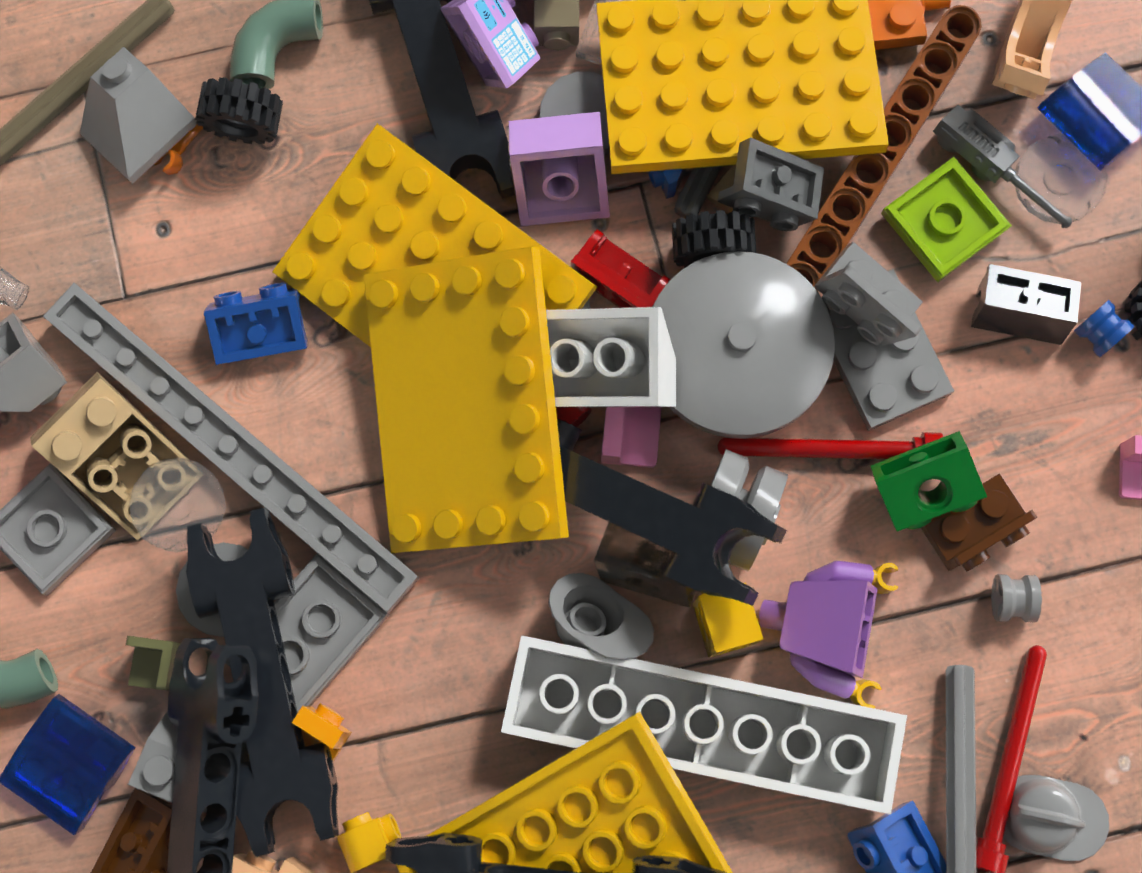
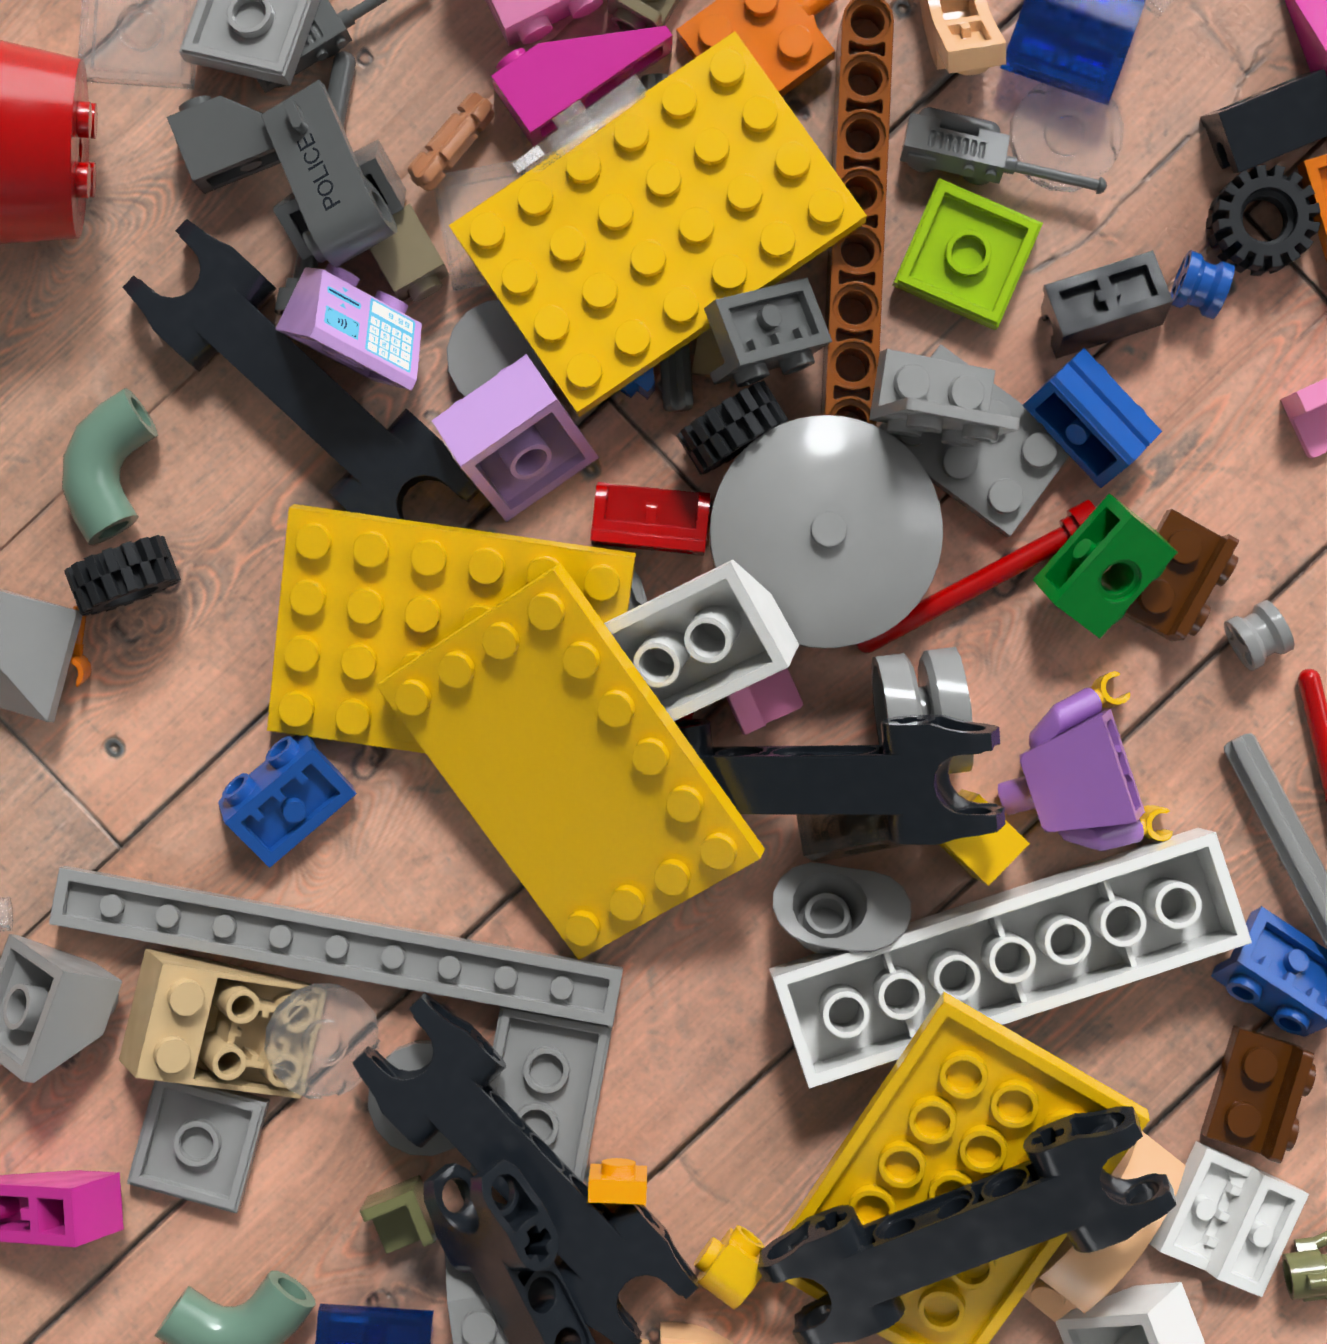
camera: 35 degrees left, 10 degrees up
(974, 375) = (1092, 418): none -> blue brick

